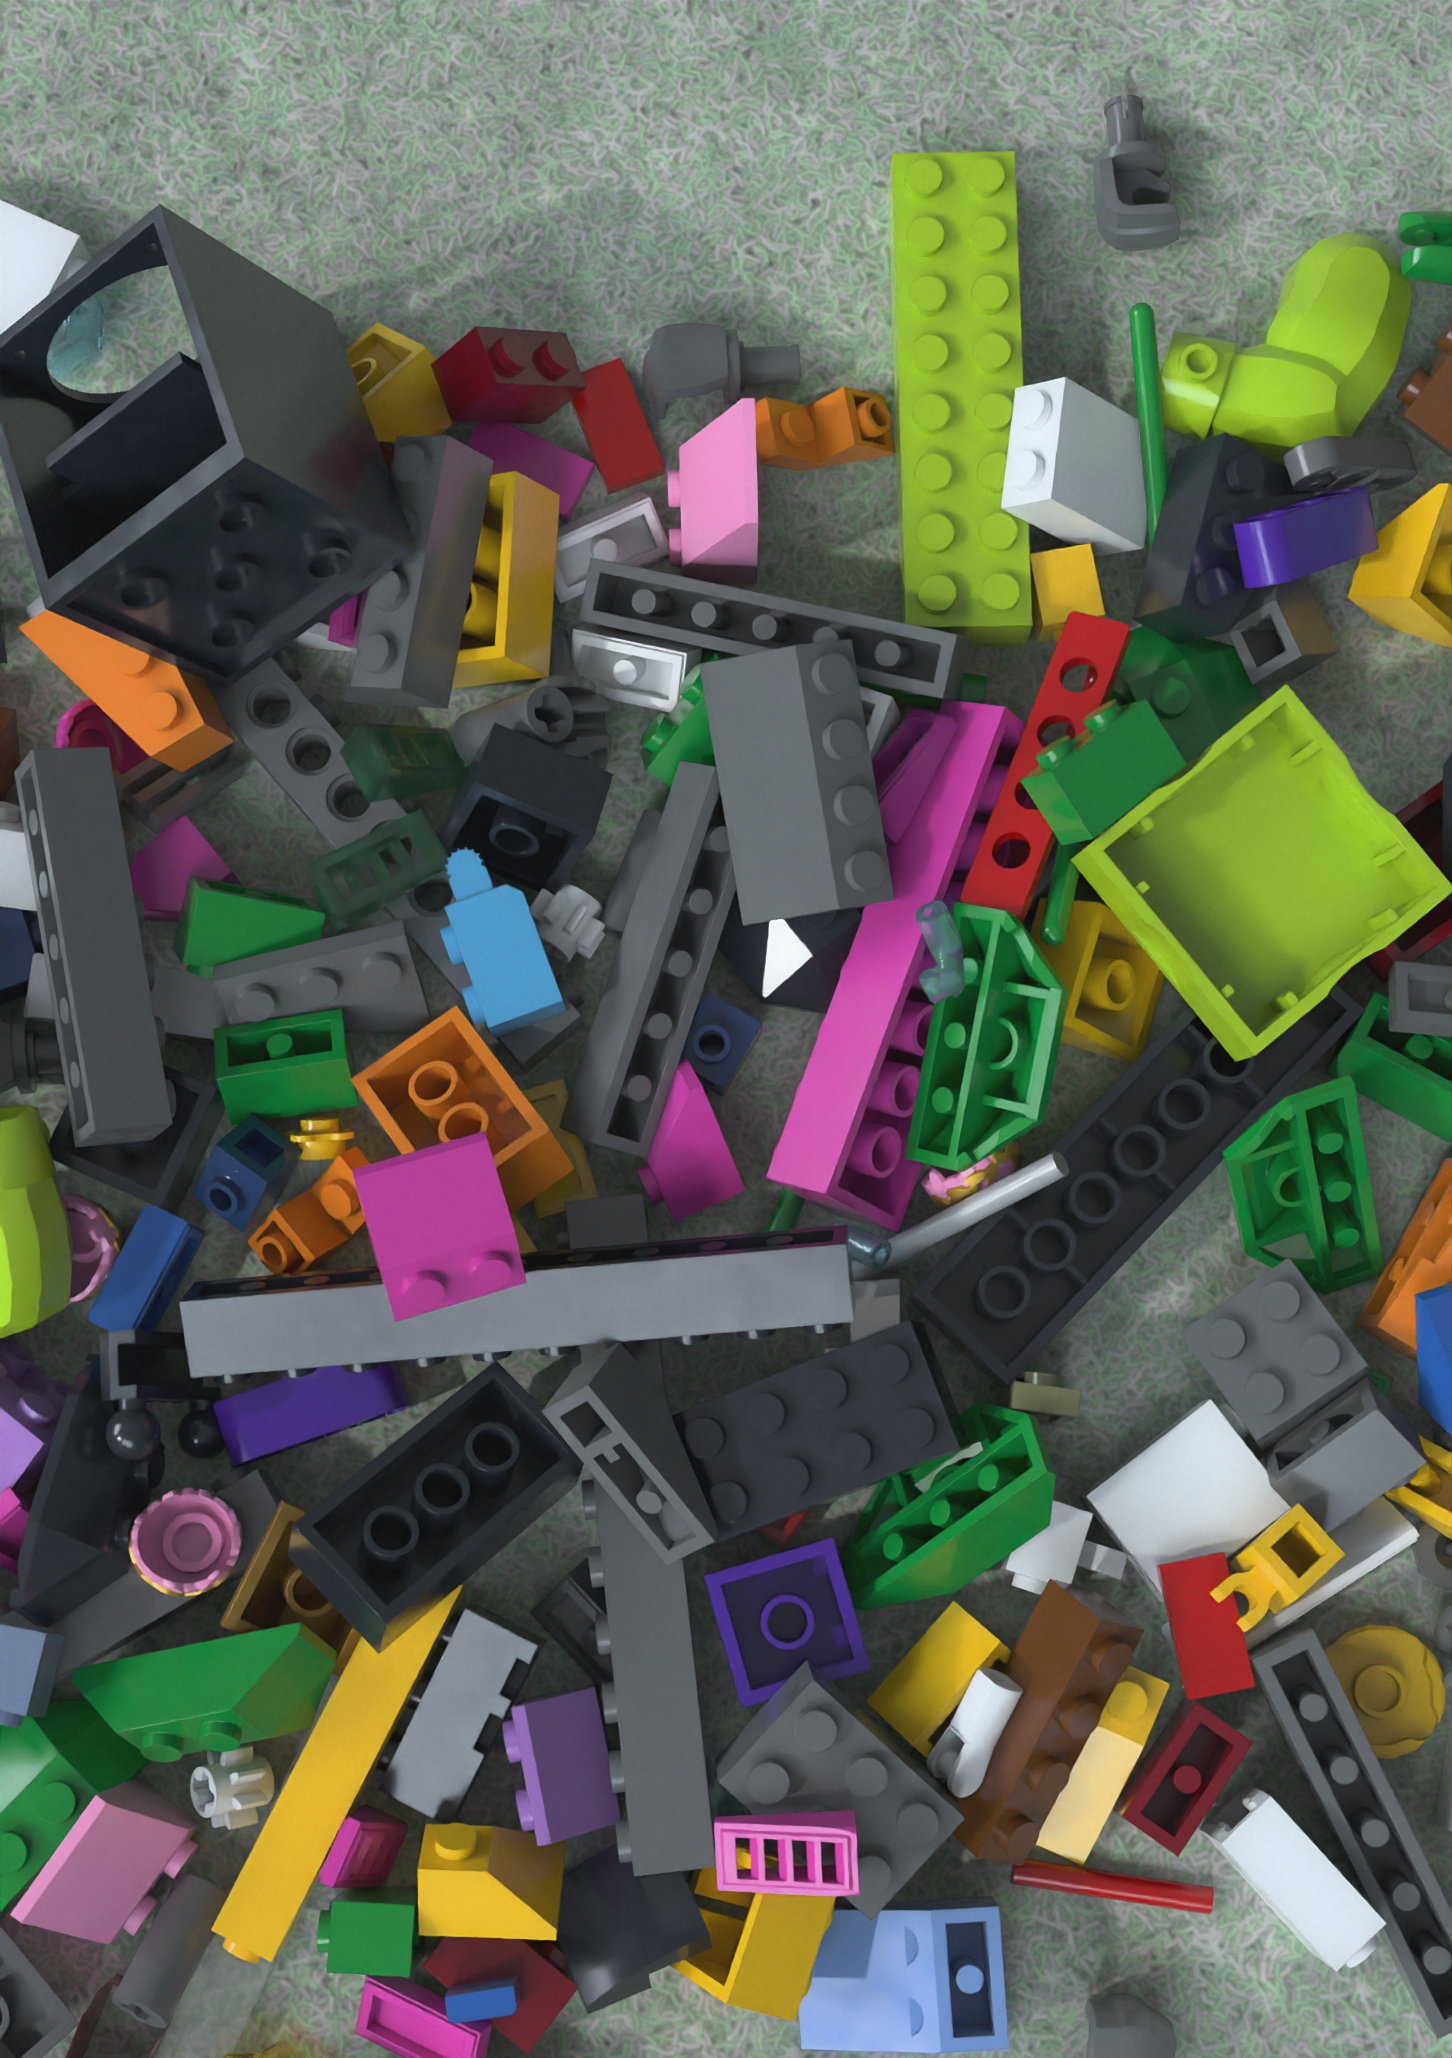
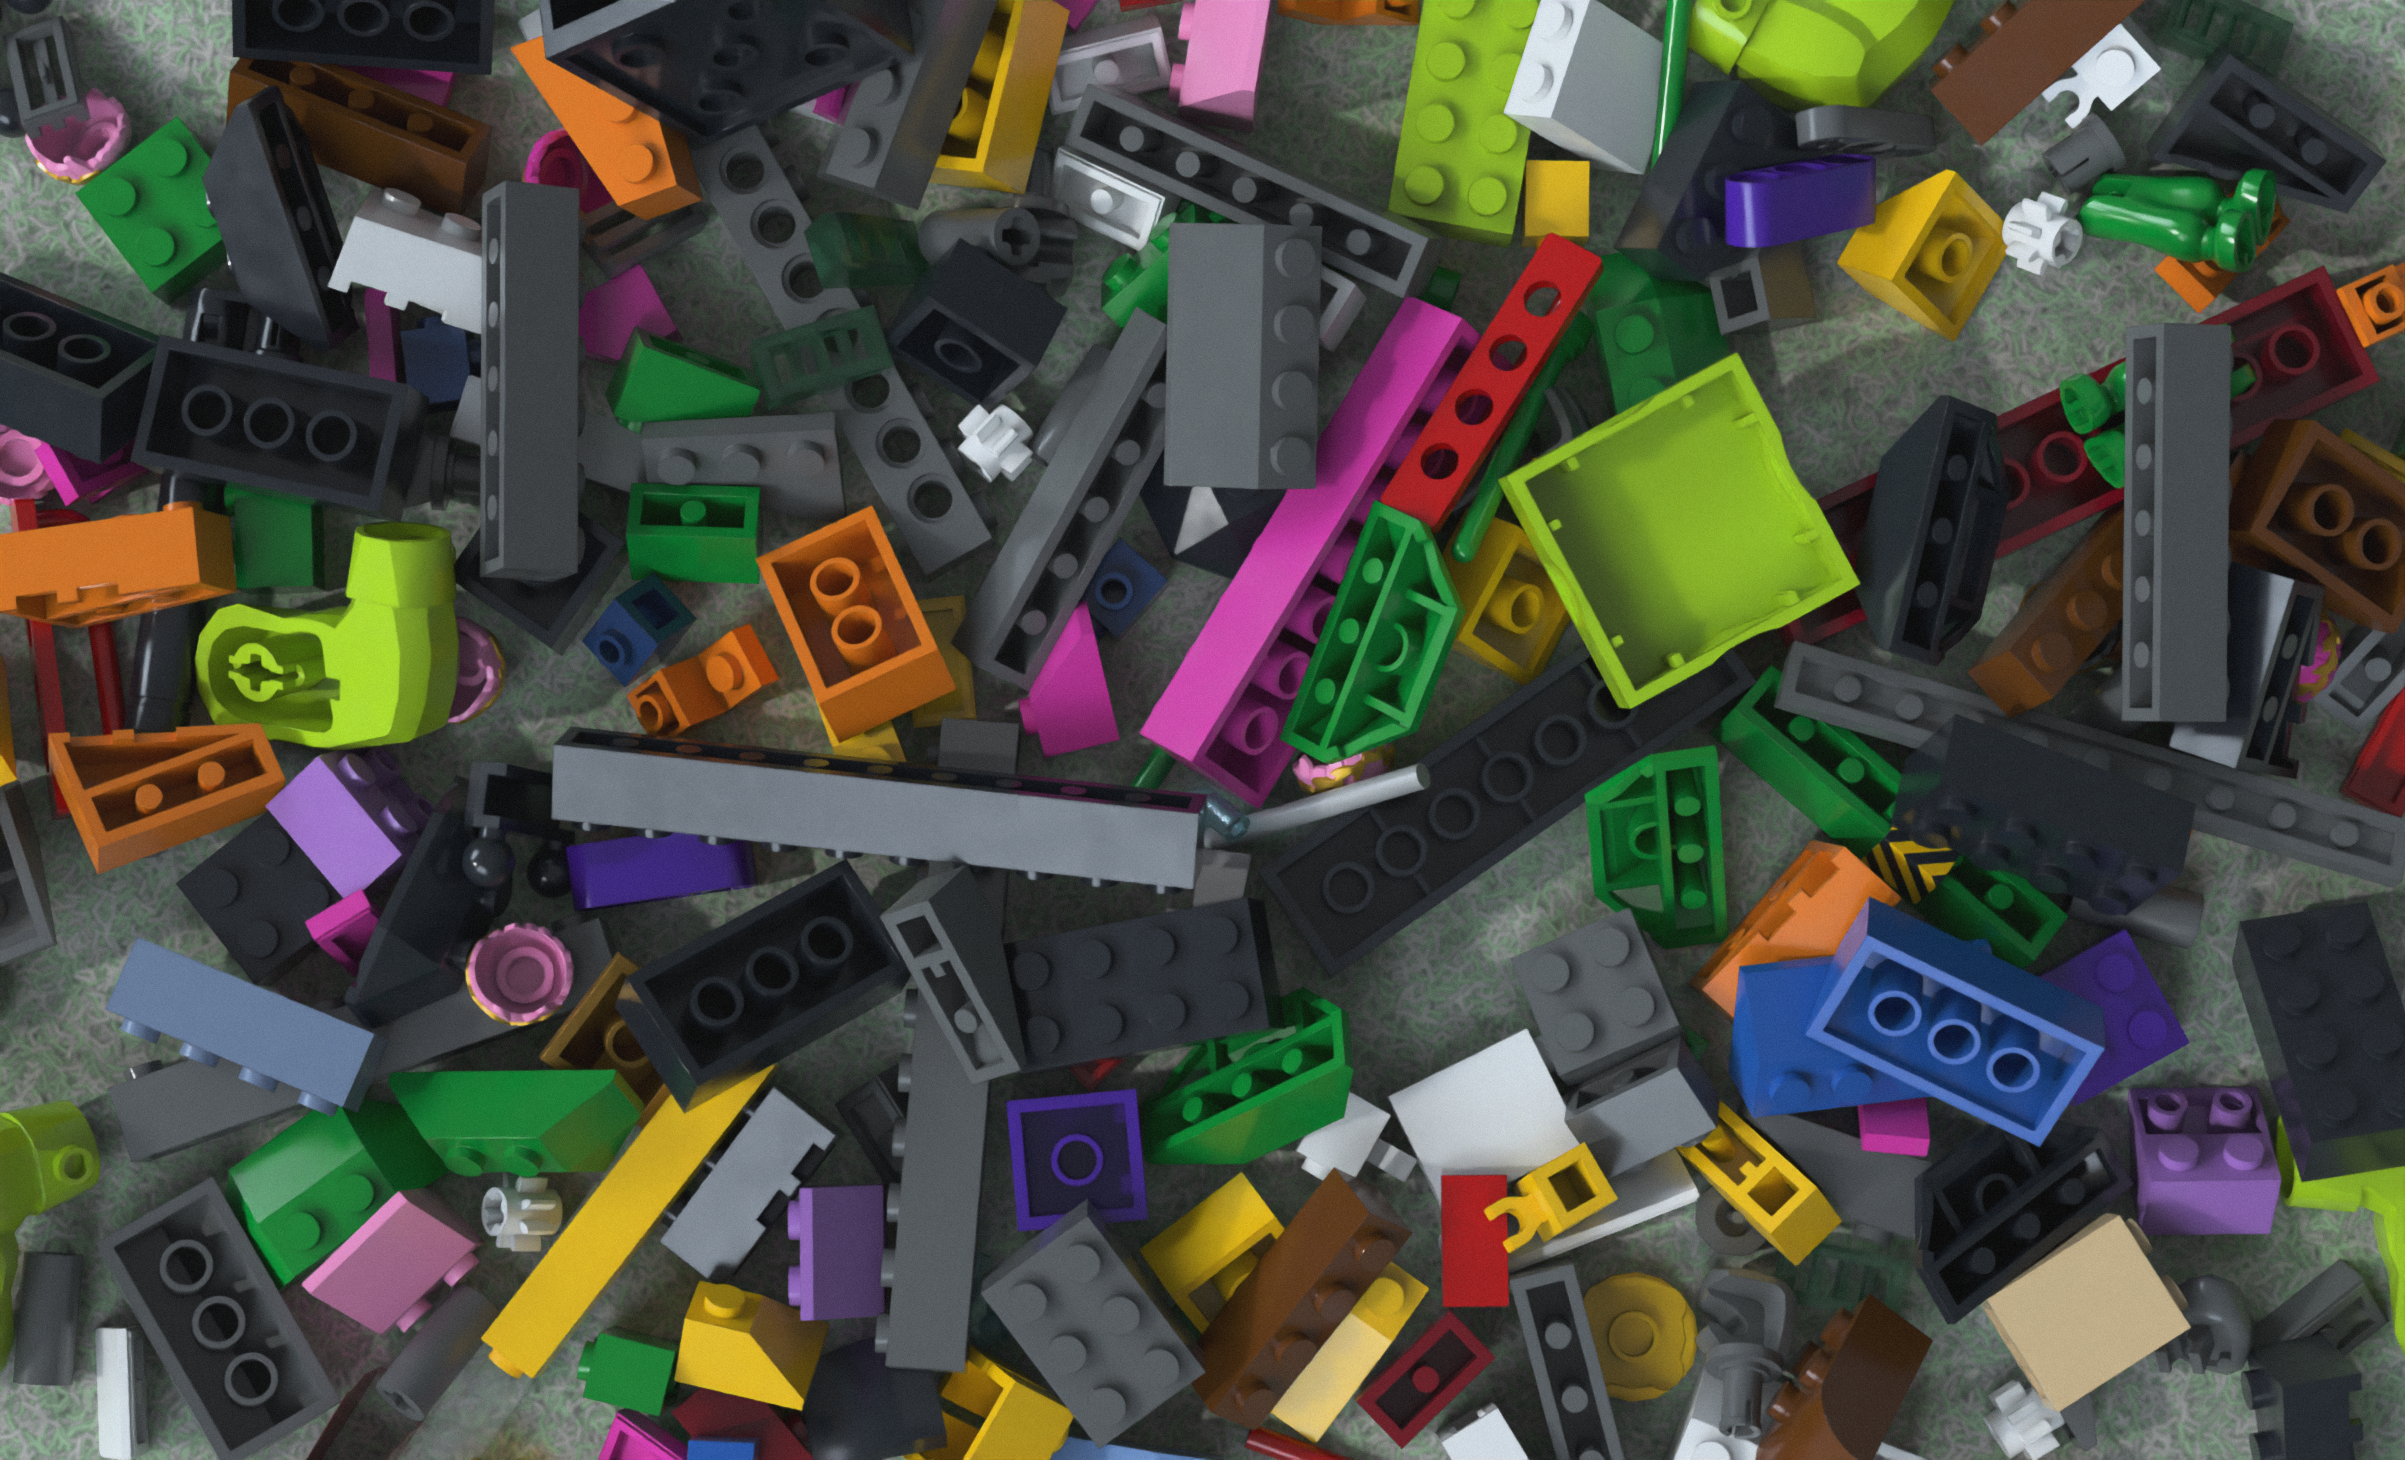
camera: 10 degrees right, 5 degrees up
(146, 1272) = (524, 707): blue slope -> none
(320, 1138) = (716, 608): yellow plate -> none
(364, 1849) = (636, 1294): dark pink slope -> none
(439, 1226) = (815, 722): dark pink slope -> none
(500, 949) = (924, 460): dark azure hinge -> none
(812, 1827) = (1058, 1350): slope -> none
(907, 767) = (1355, 357): magenta slope -> none
(947, 951) = (1356, 546): clear light blue arm -> none
(970, 1739) = (1233, 1296): white bar -> none
(1042, 1397) = (1362, 996): olive plate -> none
(1102, 771) = (1541, 402): green brick -> none

